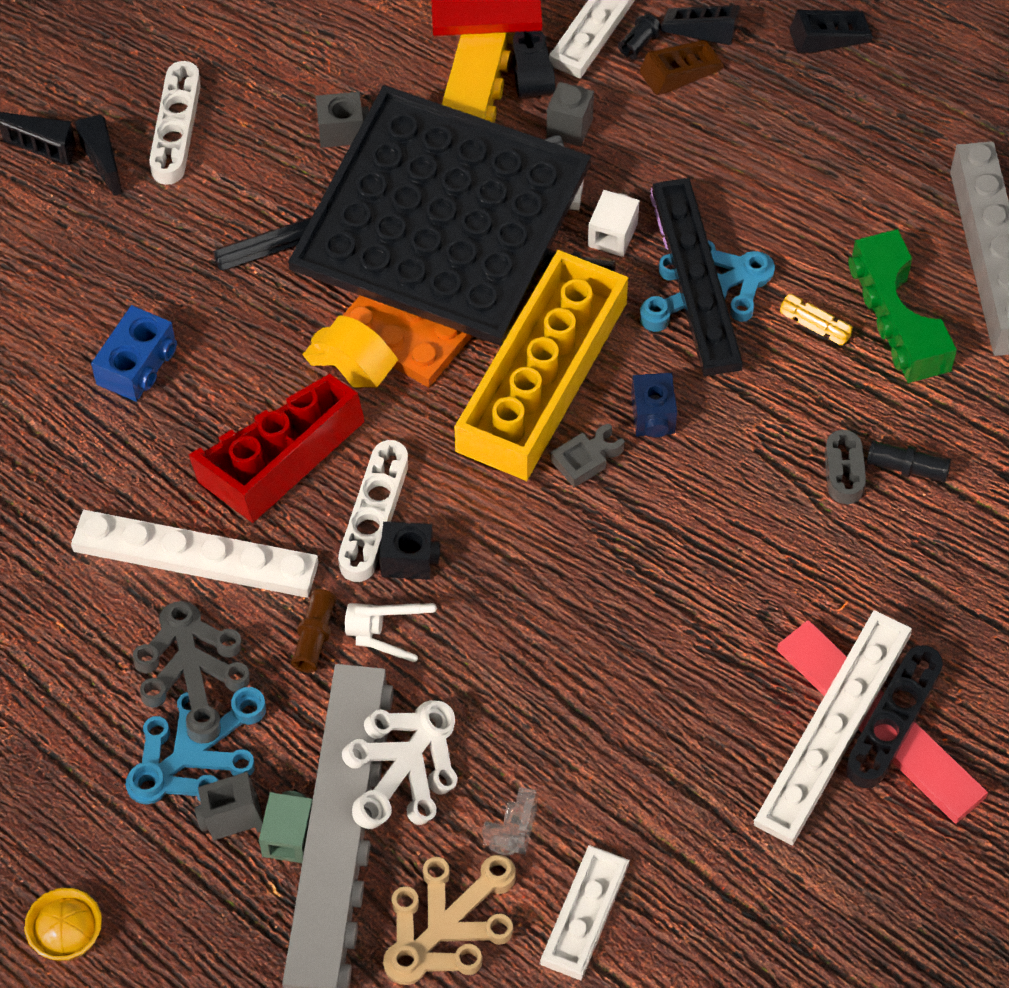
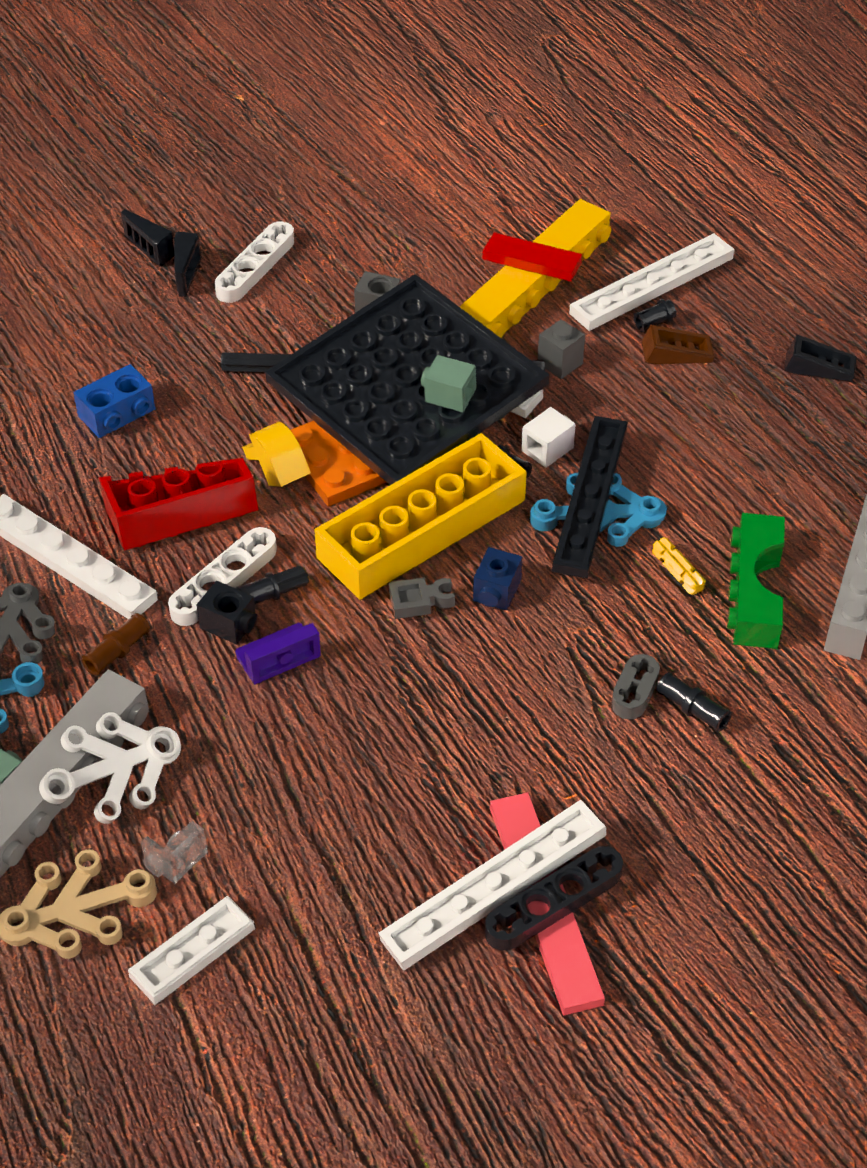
camera: 25 degrees right, 10 degrees down
(367, 619) = (164, 652): white plant -> none
(435, 500) = (274, 585): none -> black axle
(480, 570) = (279, 651): none -> dark purple panel
(500, 207) = (449, 383): none -> sand green brick
(532, 65) = (551, 304): black piece -> none
(703, 23) = (715, 323): black slope -> none

